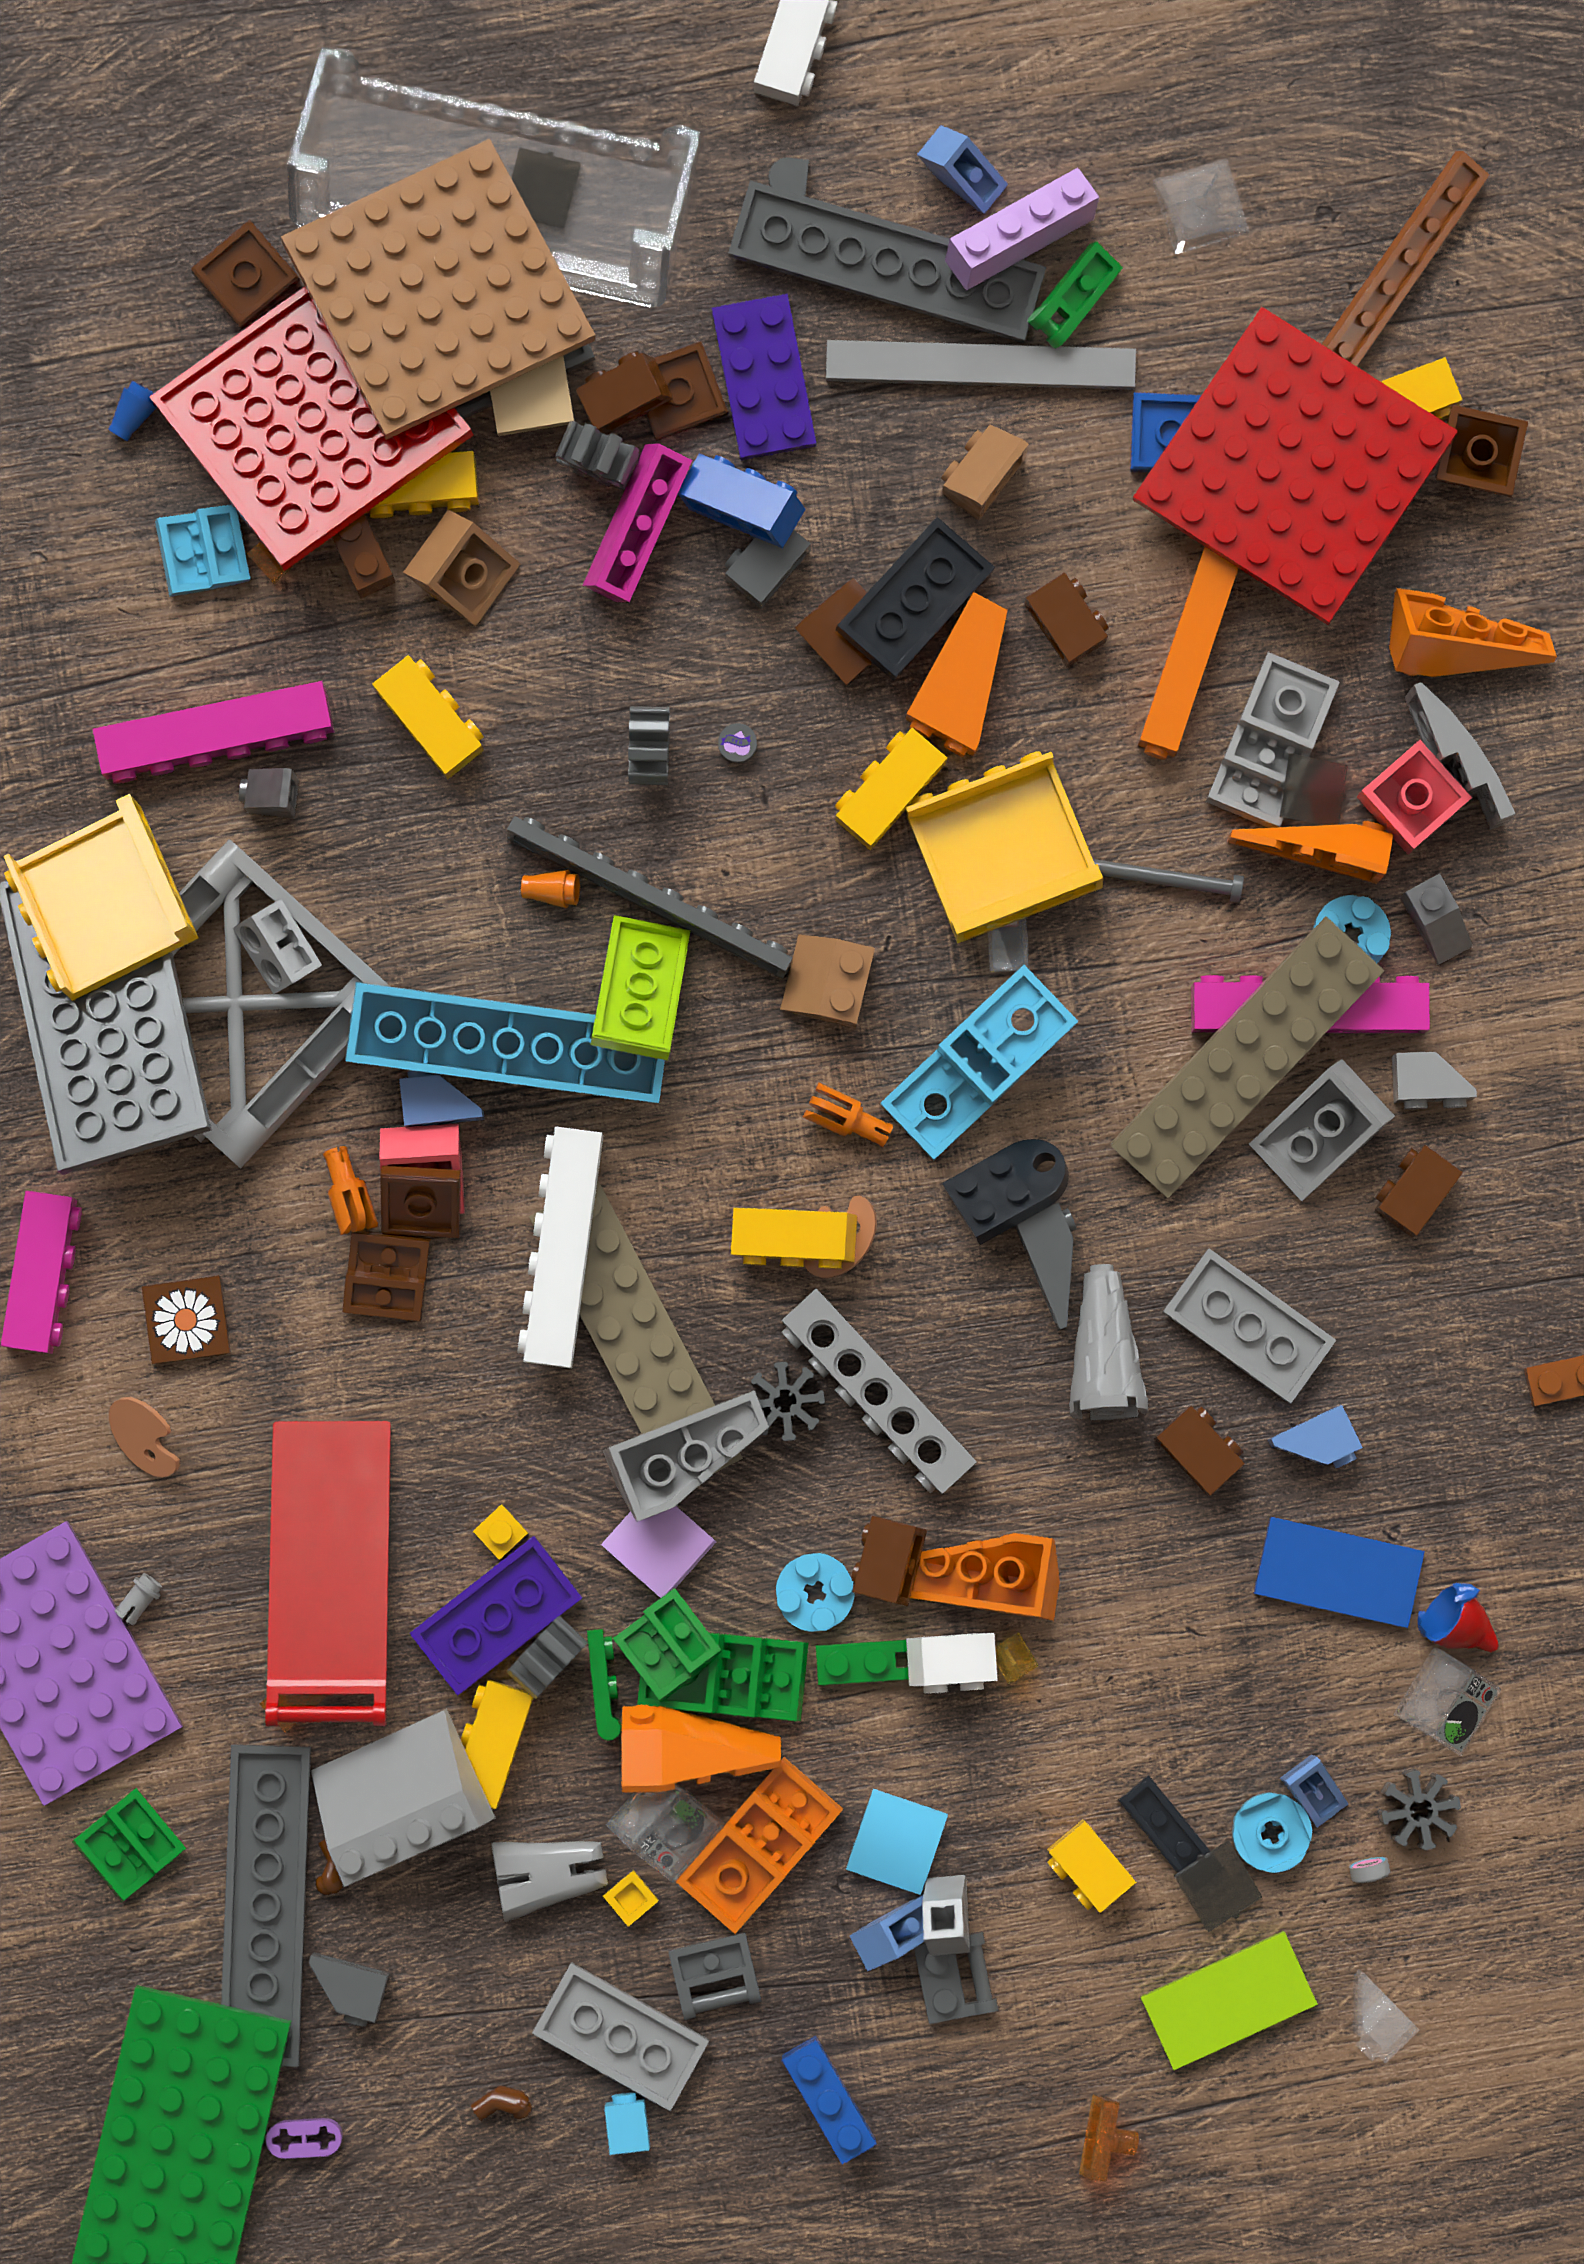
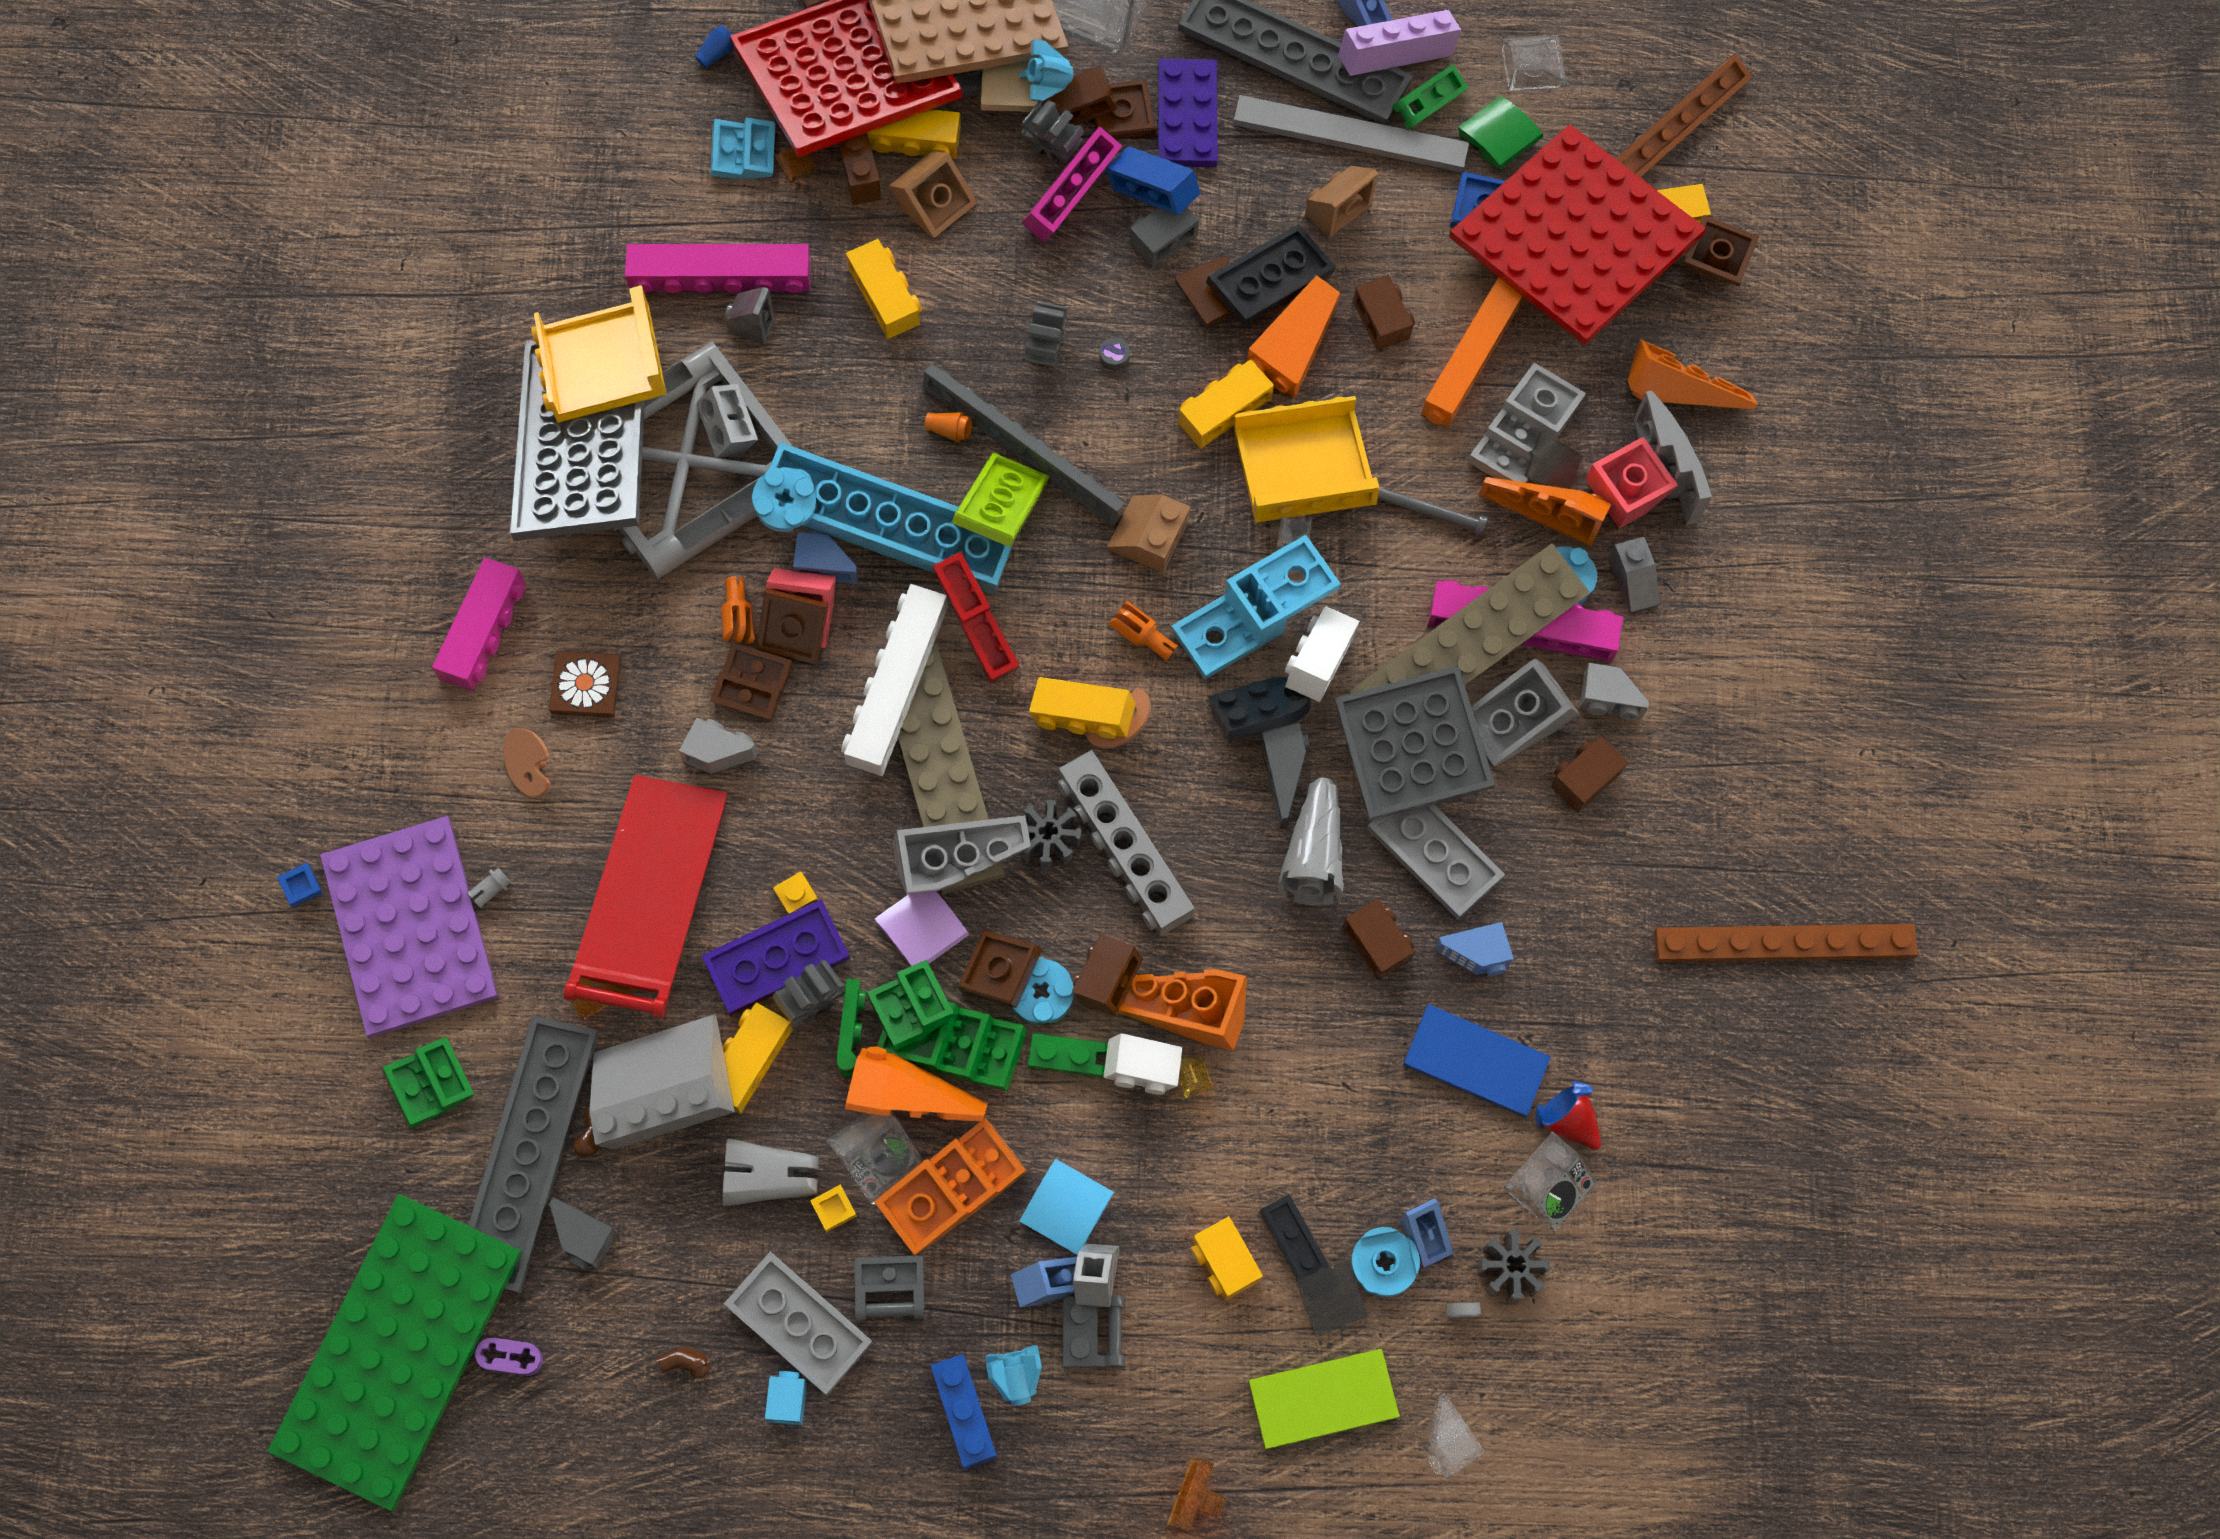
camera: 10 degrees right, 15 degrees down
(362, 1374) = (714, 748): none -> light grey slope
(397, 1043) = (777, 482): none -> medium azure plate
(577, 380) = (1048, 71): none -> medium azure brick
(641, 1148) = (975, 617): none -> red slope
(761, 1577) = (999, 968): none -> reddish brown tile
(877, 2045) = (1015, 1374): none -> medium azure brick
(1069, 1107) = (1320, 653): none -> white brick
(1174, 324) = (1500, 132): none -> green slope
(1201, 1203) = (1414, 743): none -> dark grey plate

